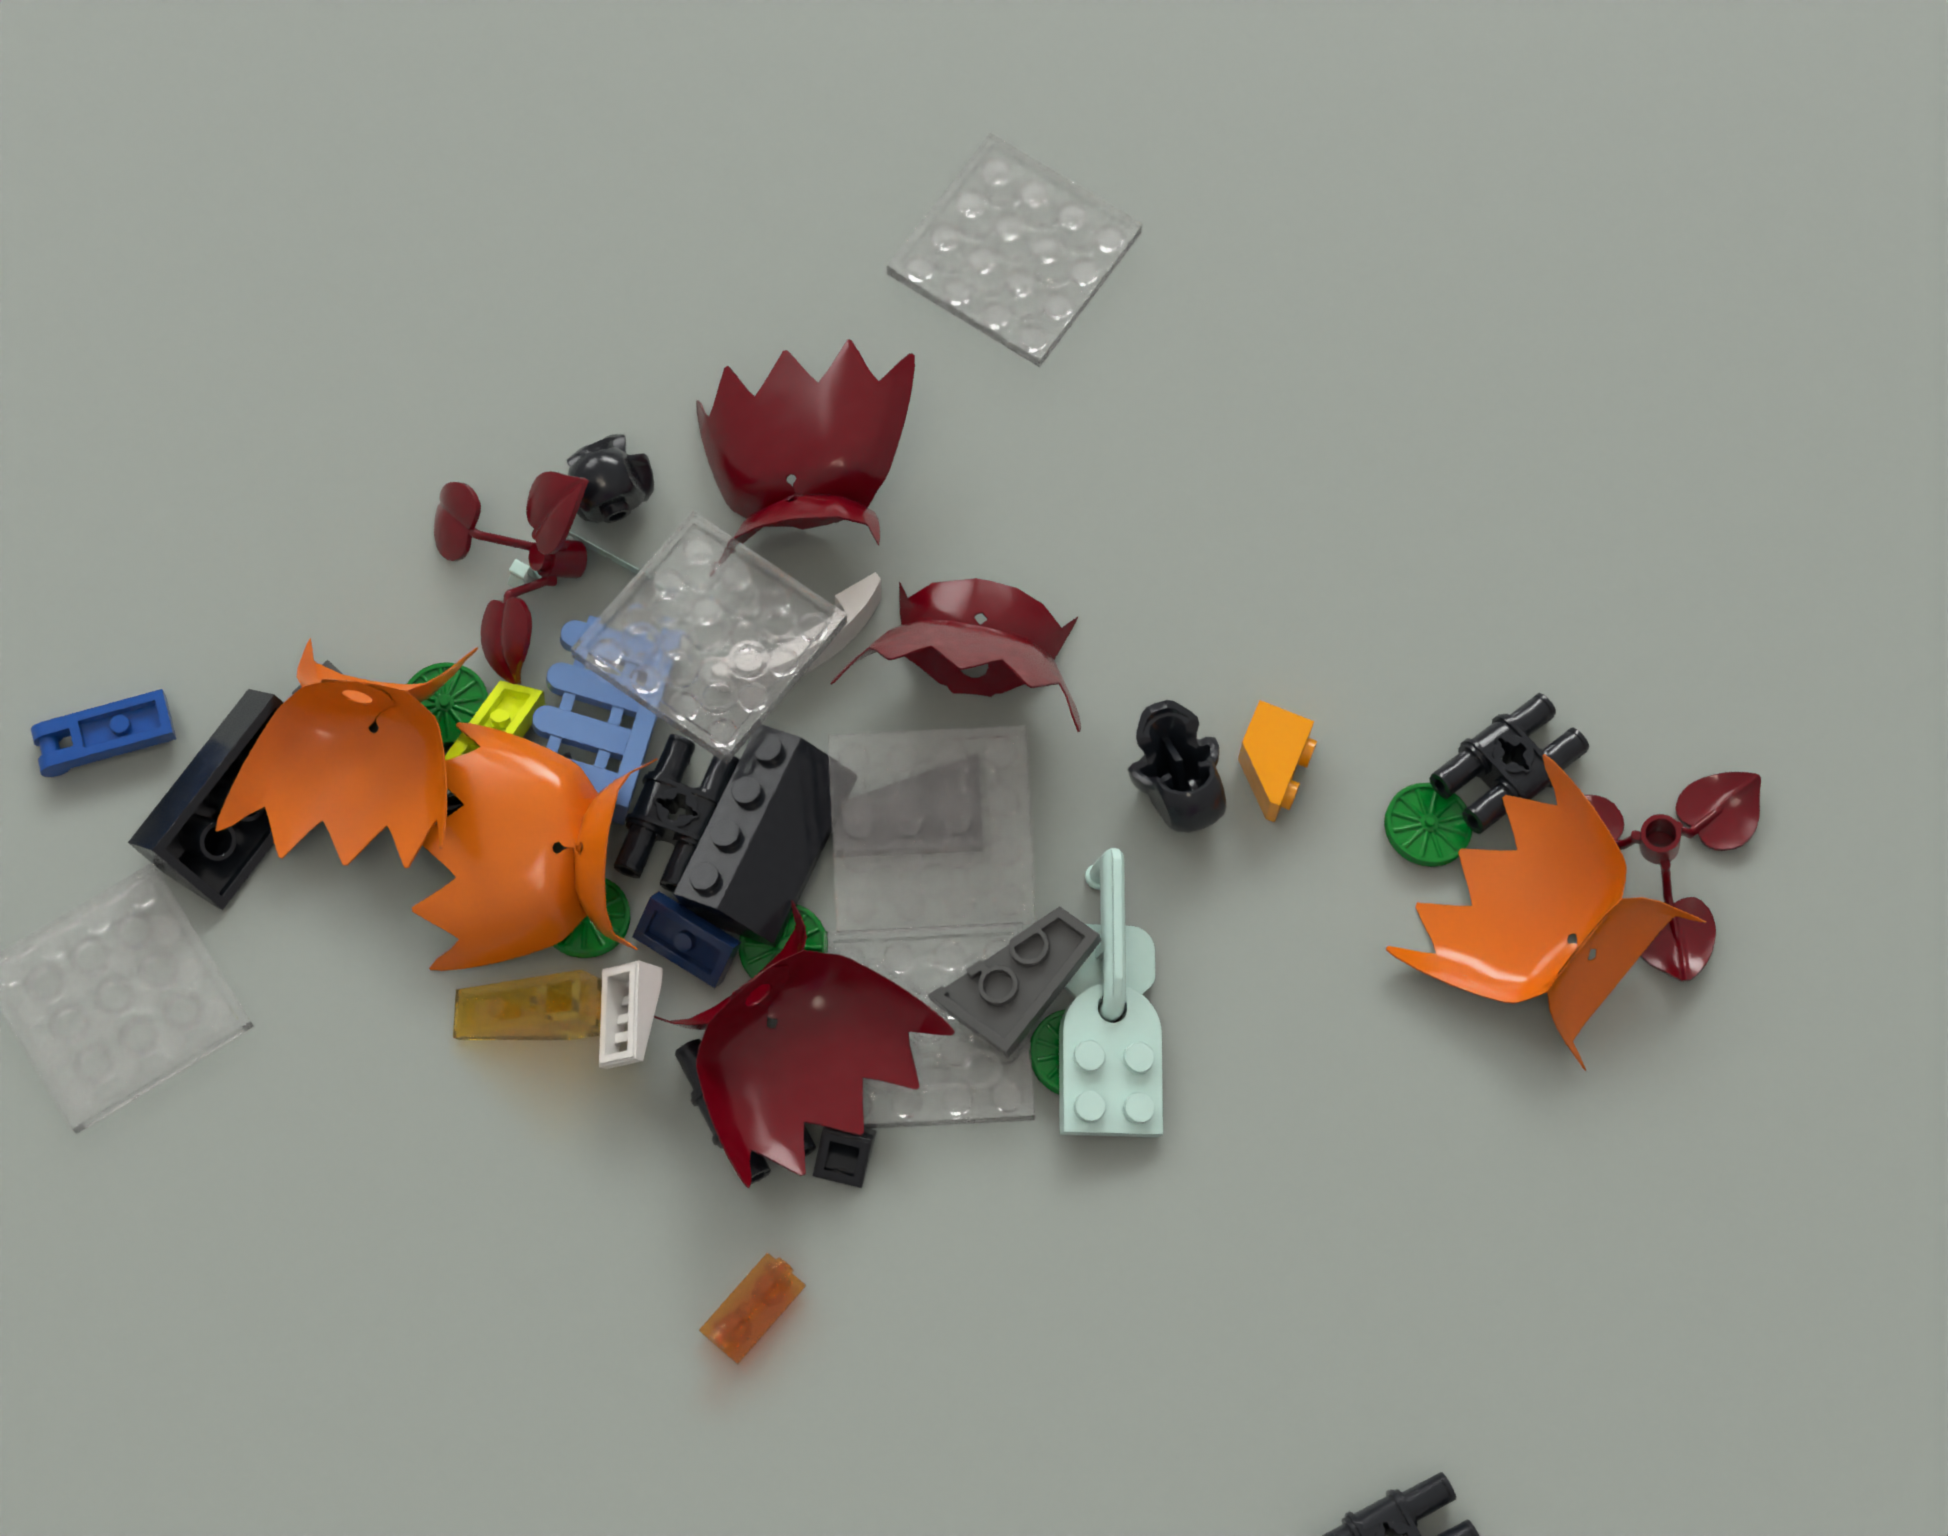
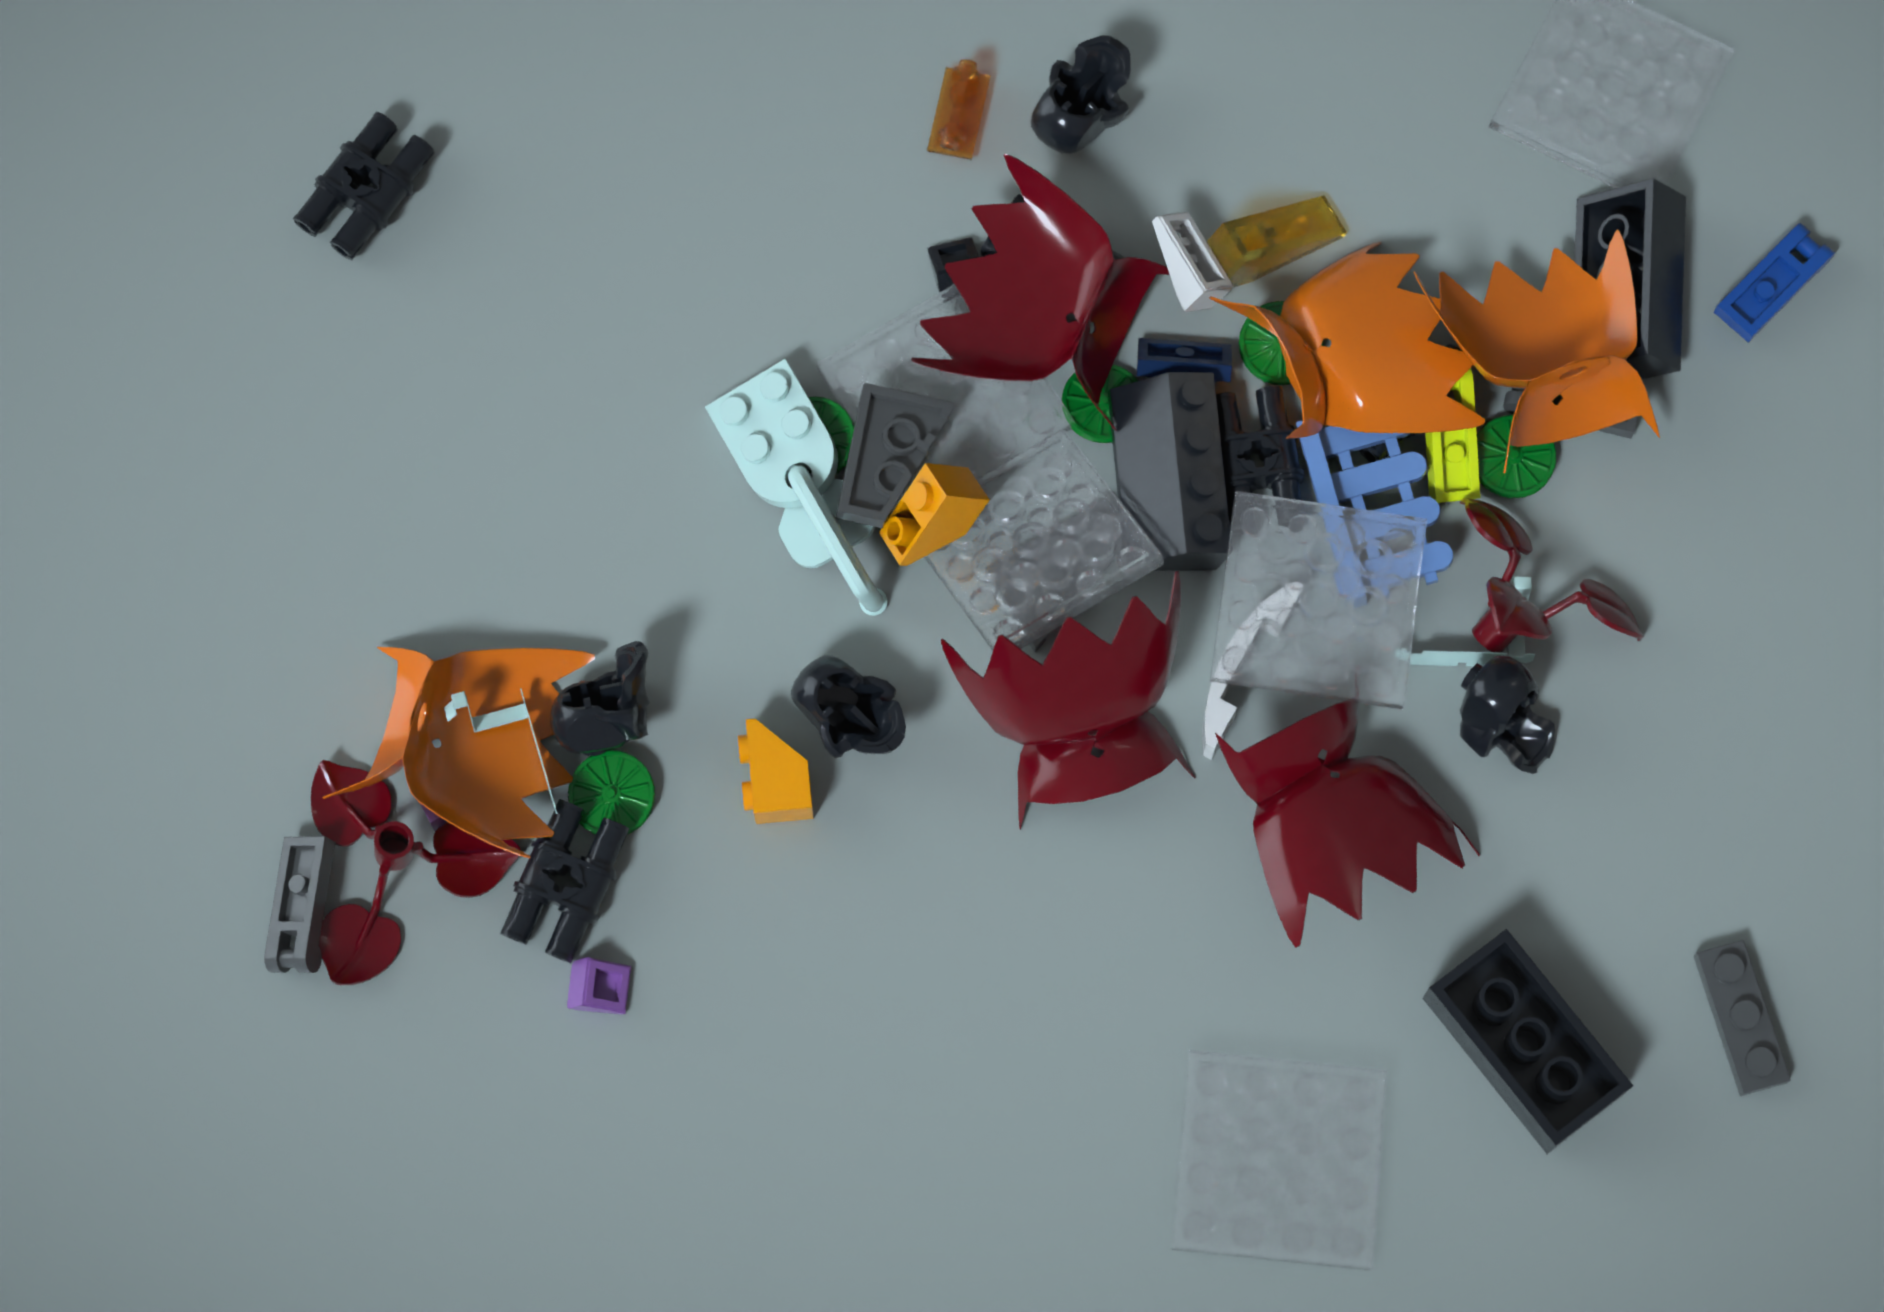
camera: 155 degrees right, 5 degrees up
(569, 173) = (1741, 1018): none -> dark grey plate
(628, 1239) = (1083, 96): none -> black head
(760, 225) = (1527, 1041): none -> black brick
(1006, 896) = (933, 512): none -> light orange slope
(1403, 886) = (604, 711): none -> black head
(1509, 939) = (493, 720): none -> light aqua piece
(1519, 667) = (599, 986): none -> medium lavender slope
(1760, 863) = (299, 904): none -> dark grey plate

